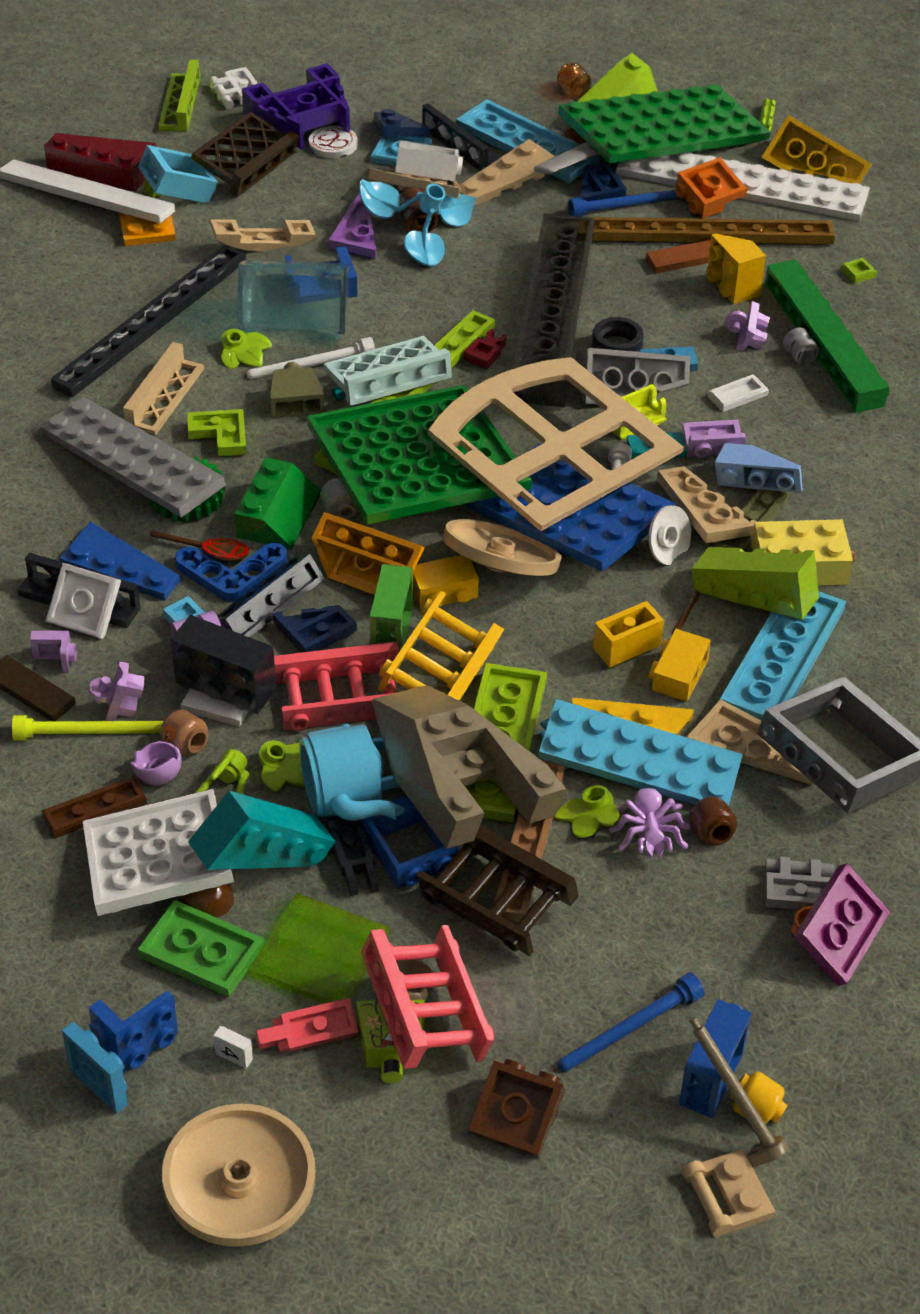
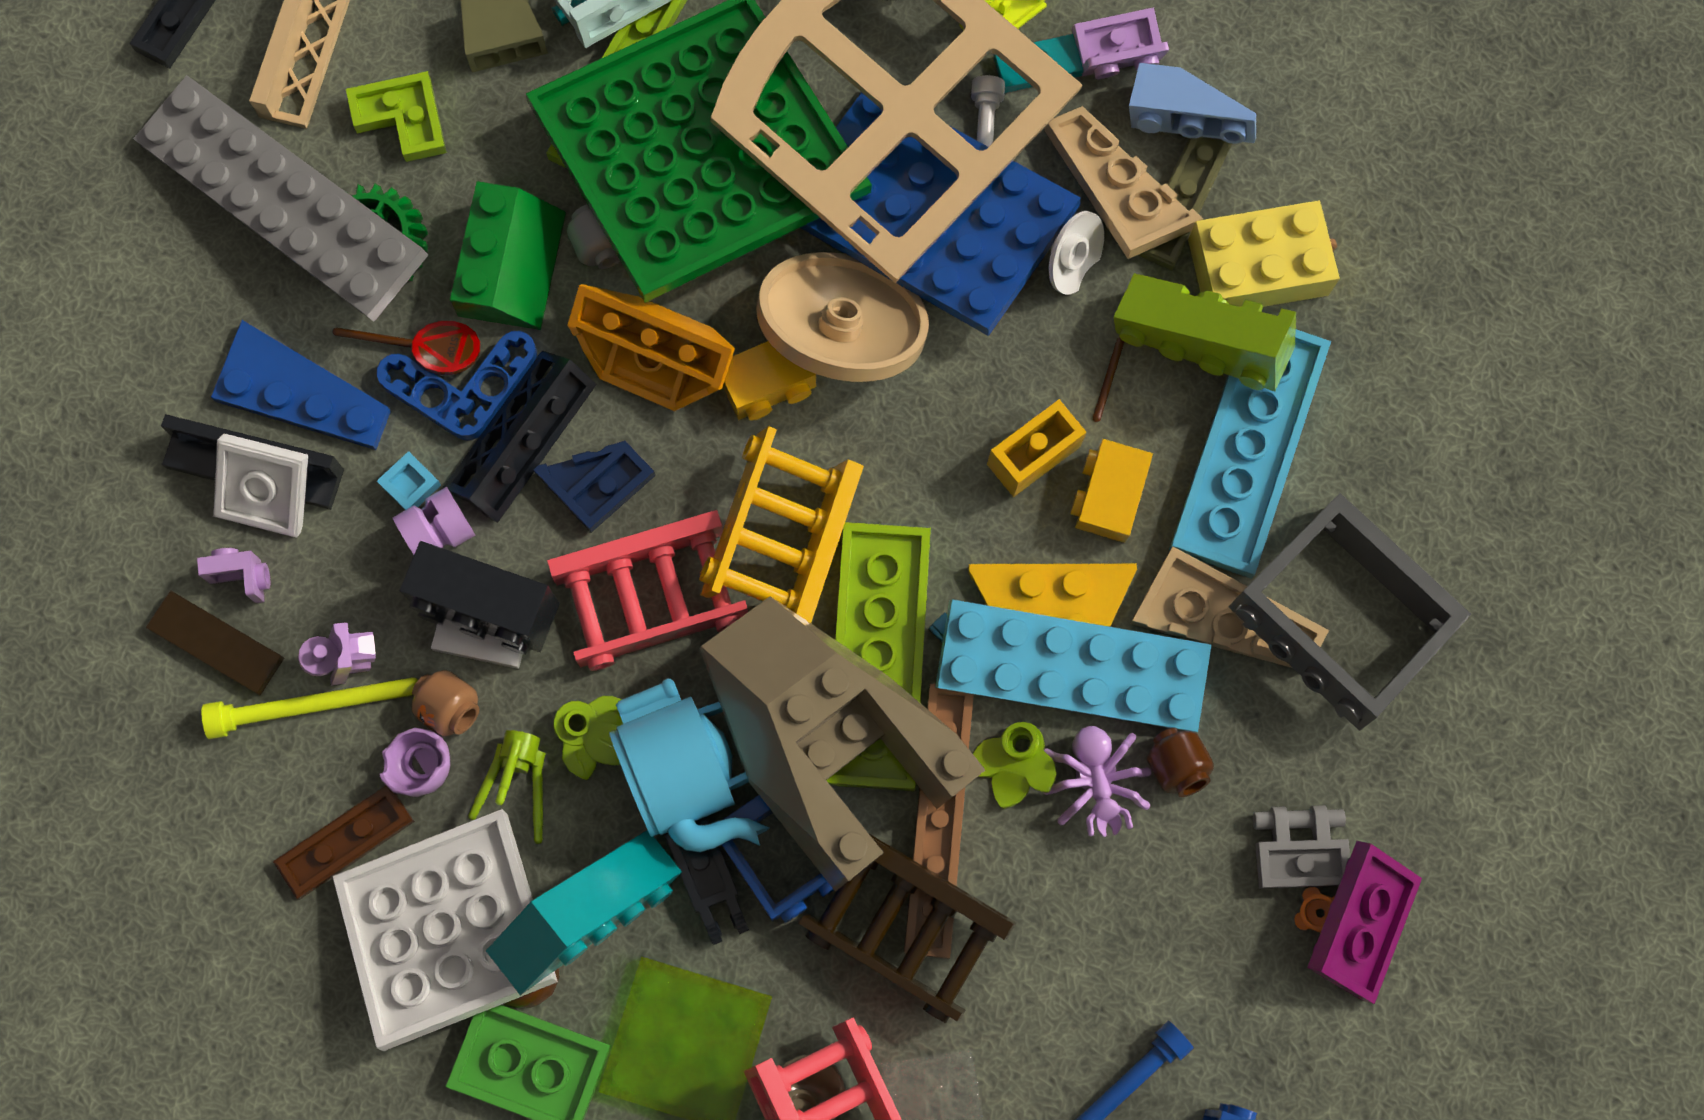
camera: 10 degrees left, 30 degrees up
(392, 605) = (701, 453): bright green window -> none

